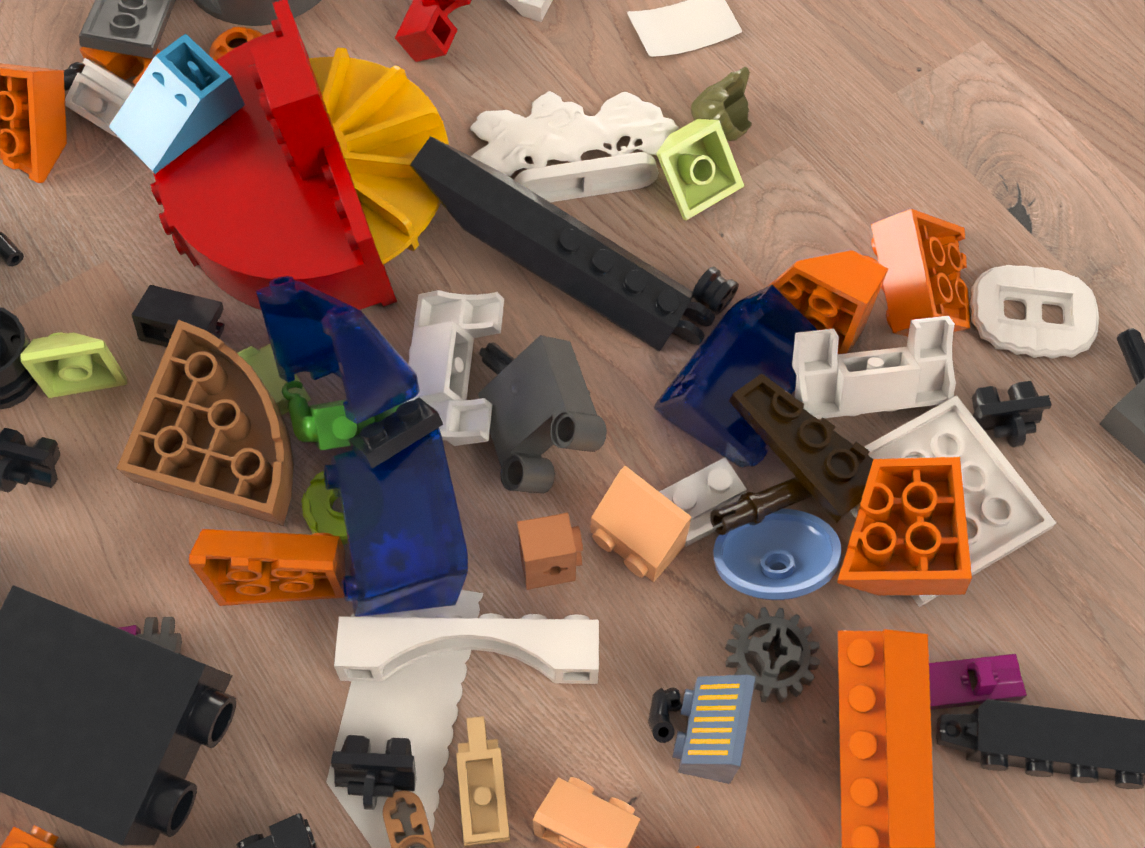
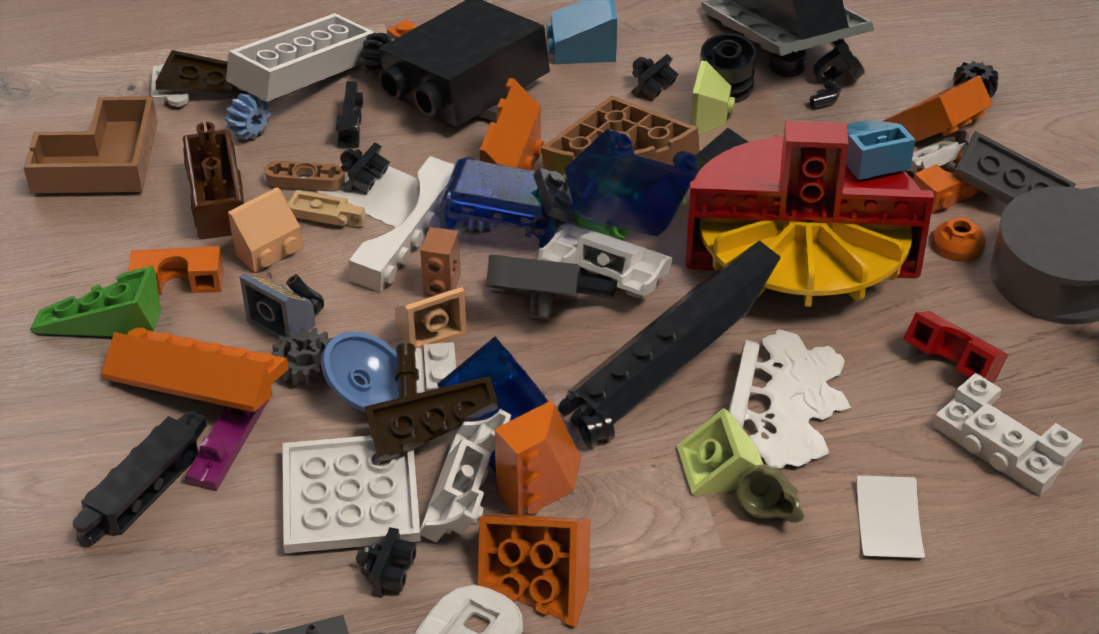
camera: 115 degrees right, 20 degrees down
(910, 530) = (327, 435): orange wedge -> none

